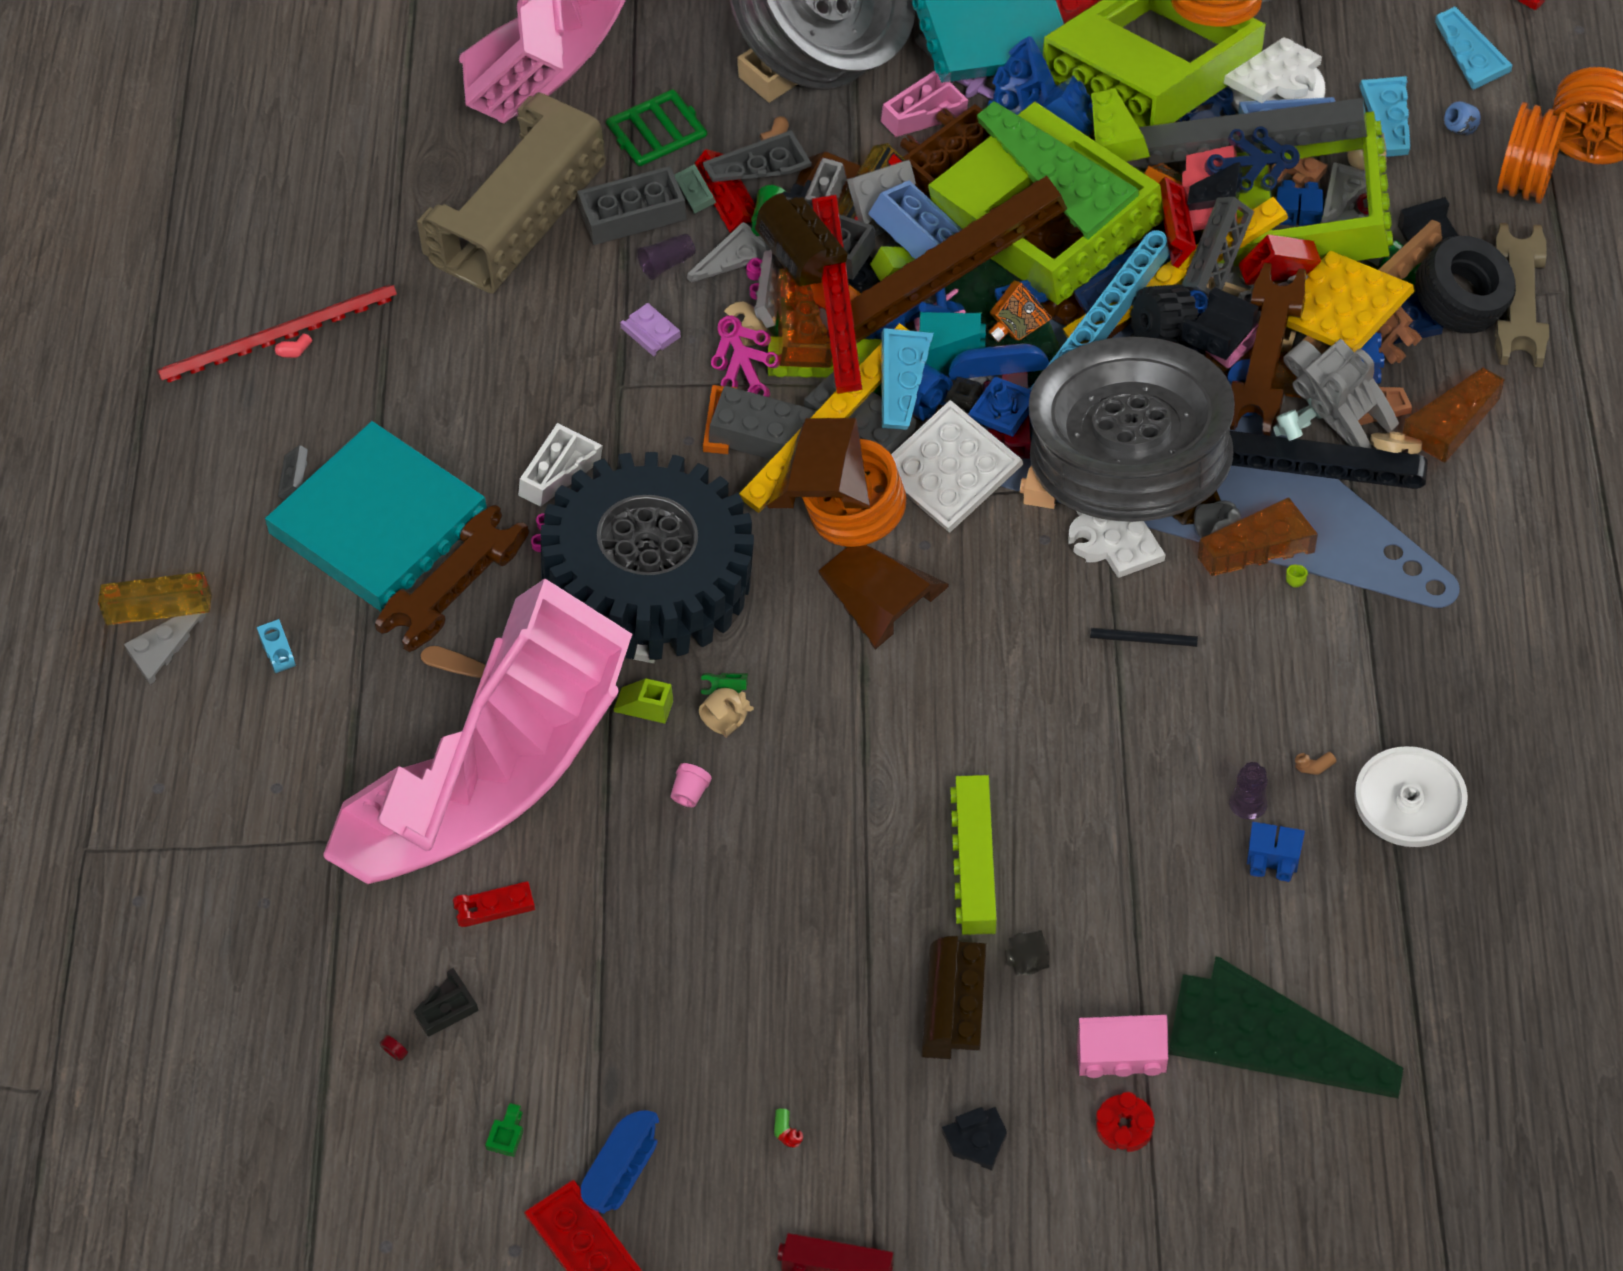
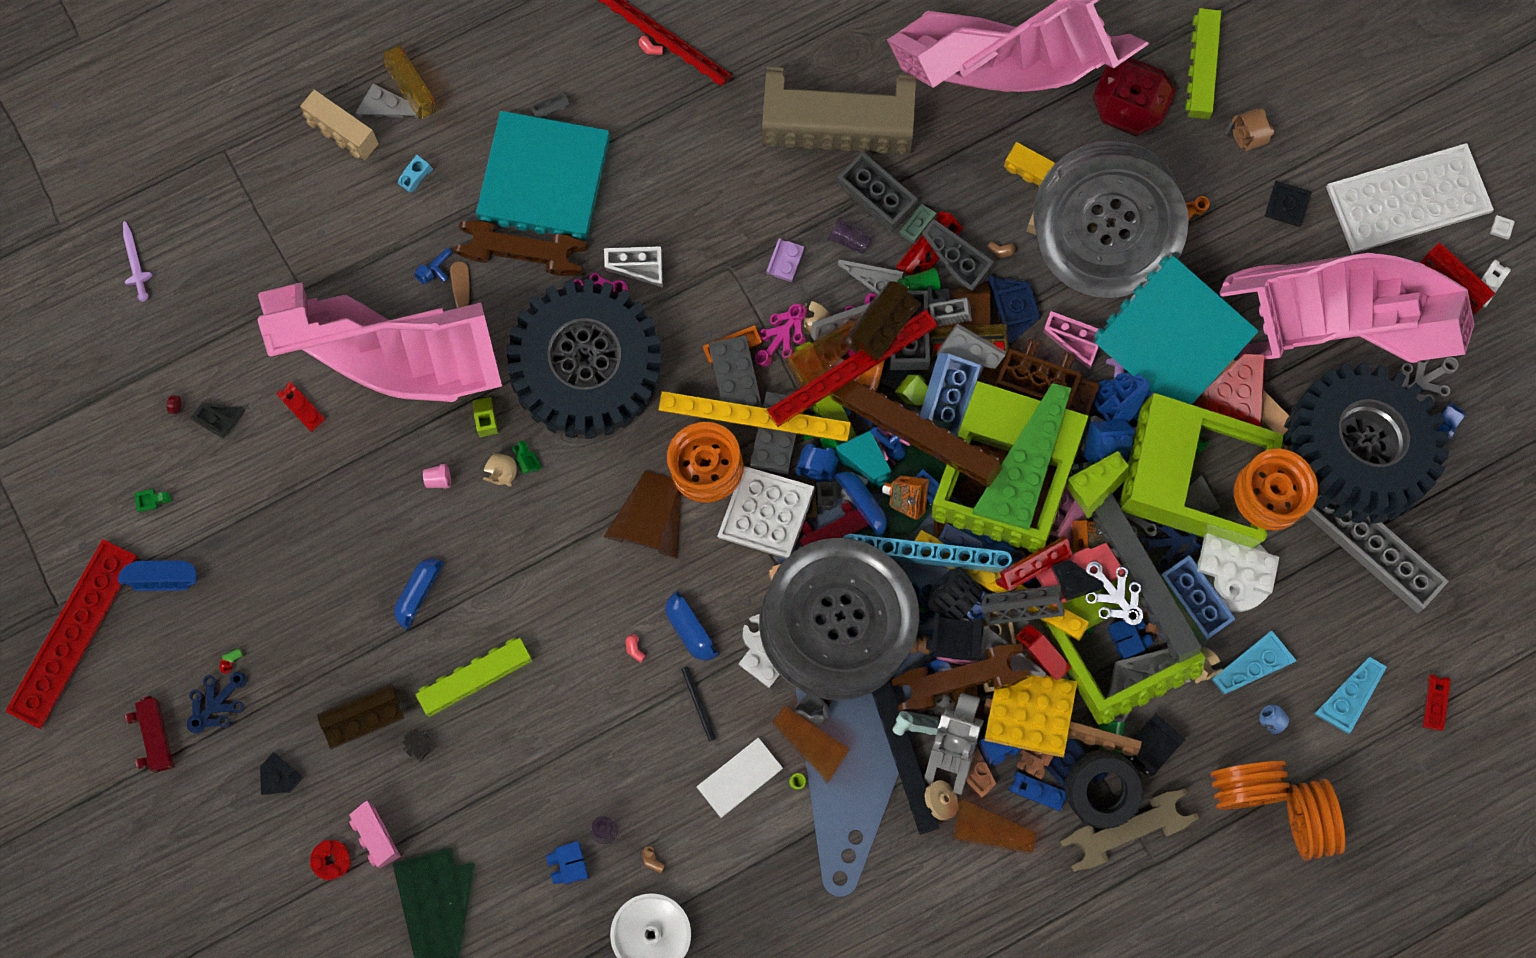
camera: 60 degrees right, 20 degrees up
(155, 694) = (339, 125): none -> tan brick
(186, 1022) = (138, 277): none -> lavender sword
(414, 688) = (425, 275): none -> blue piece
(653, 105) = (943, 182): green bar -> none
(705, 59) = (1027, 164): none -> yellow brick
(823, 875) = (416, 591): none -> blue brick
(824, 464) = (703, 435): reddish brown wedge -> none
(836, 1173) = (213, 704): none -> dark blue plant
(846, 141) = (1014, 305): none -> dark blue wing
(902, 369) = (812, 443): medium azure wing -> none
(1001, 400) = (827, 518): blue plate -> none
(1035, 673) = (632, 648): none -> coral arm
(1042, 604) = (689, 628): none -> blue brick
(1259, 633) = (739, 777): none -> white tile
(1431, 358) = (1038, 792): none -> blue plate

